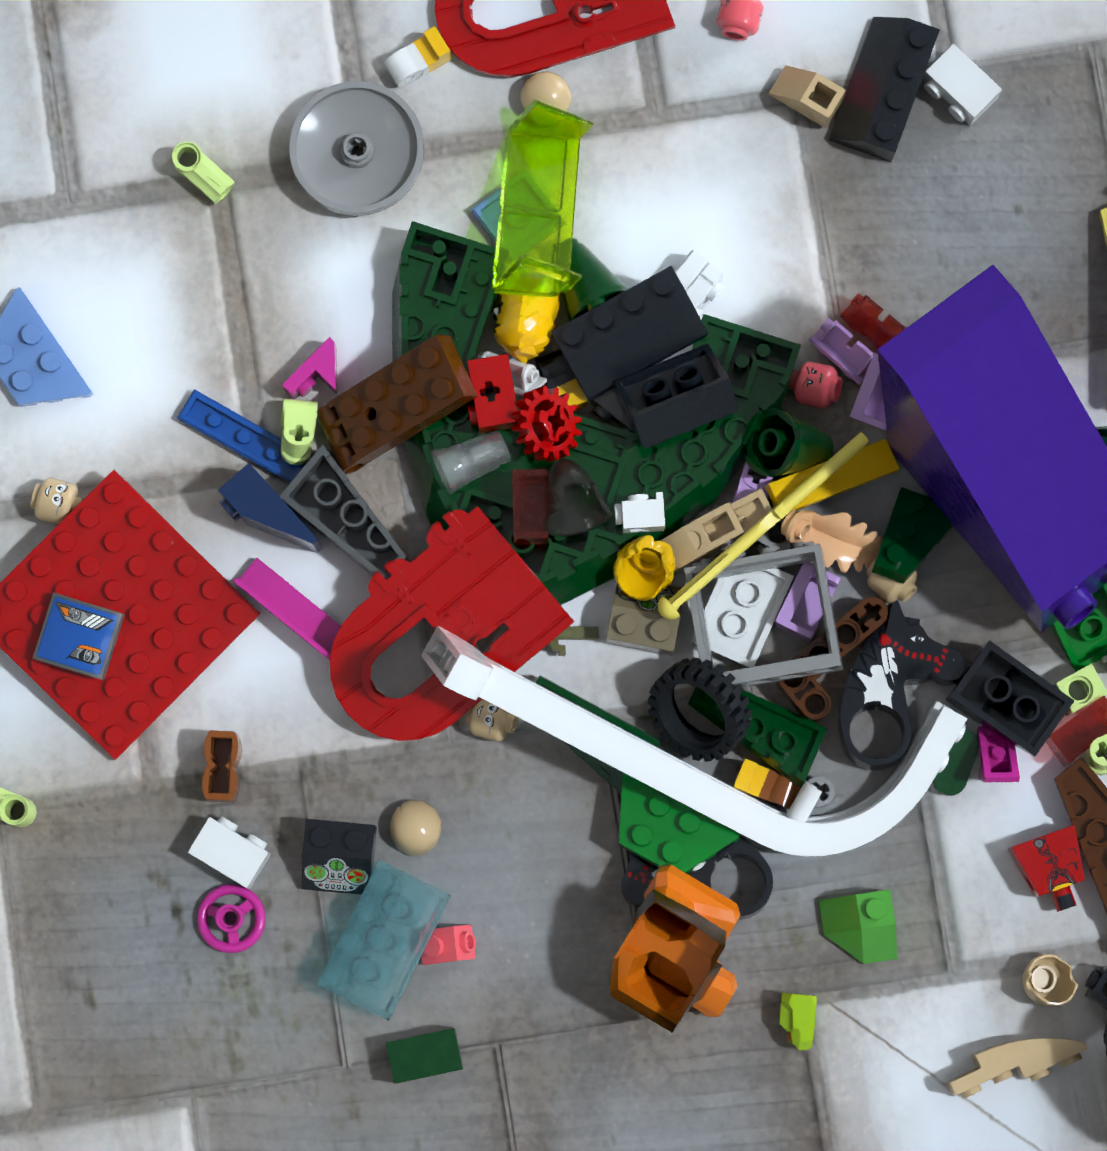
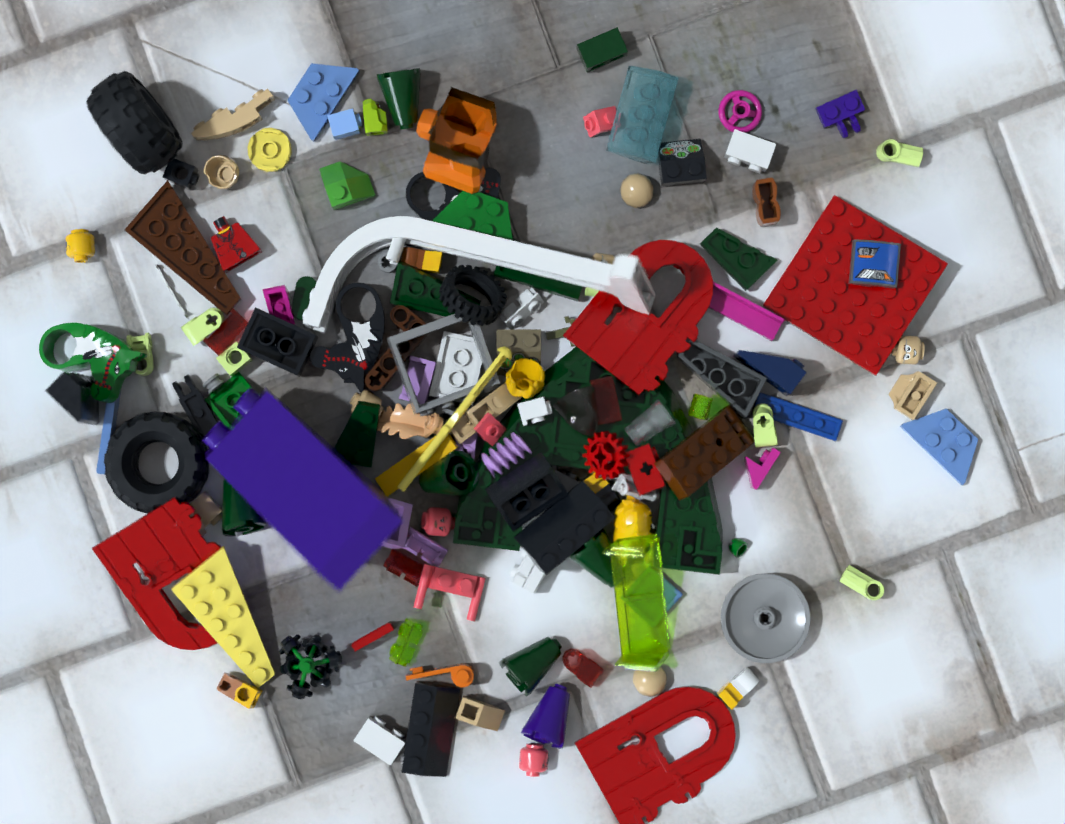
camera: 165 degrees right, 5 degrees up
(65, 436) = (911, 393): none -> tan slope
(75, 890) = (840, 109): none -> dark purple hinge
(284, 692) = (739, 260): none -> dark green wing
(374, 261) = (738, 547): none -> green hinge
(389, 473) = (700, 407): none -> clear neon green piece
(616, 684) = (529, 303): none -> white hinge
(638, 129) = (584, 669): none -> clear red piece
(697, 456) = (505, 454): none -> lavender piece
(705, 67) = (549, 718): none -> dark purple cone
(712, 501) = (489, 429): none -> coral bracket
(715, 150) = (531, 664): none -> dark green cone
(749, 1045) = (401, 95): none -> dark green cone
(812, 290) = (450, 582): none -> coral plate
(823, 159) = (461, 674): none -> orange door
(845, 1018) = (344, 124): none -> light blue brick
(876, 1073) = (320, 94): none -> medium blue wing
(906, 206) = (400, 651): none -> clear neon green hinge
(944, 237) = (372, 636): none -> red tile
(968, 1003) = (269, 149): none -> light yellow tile
(1067, 215) = (295, 666): none -> black plant

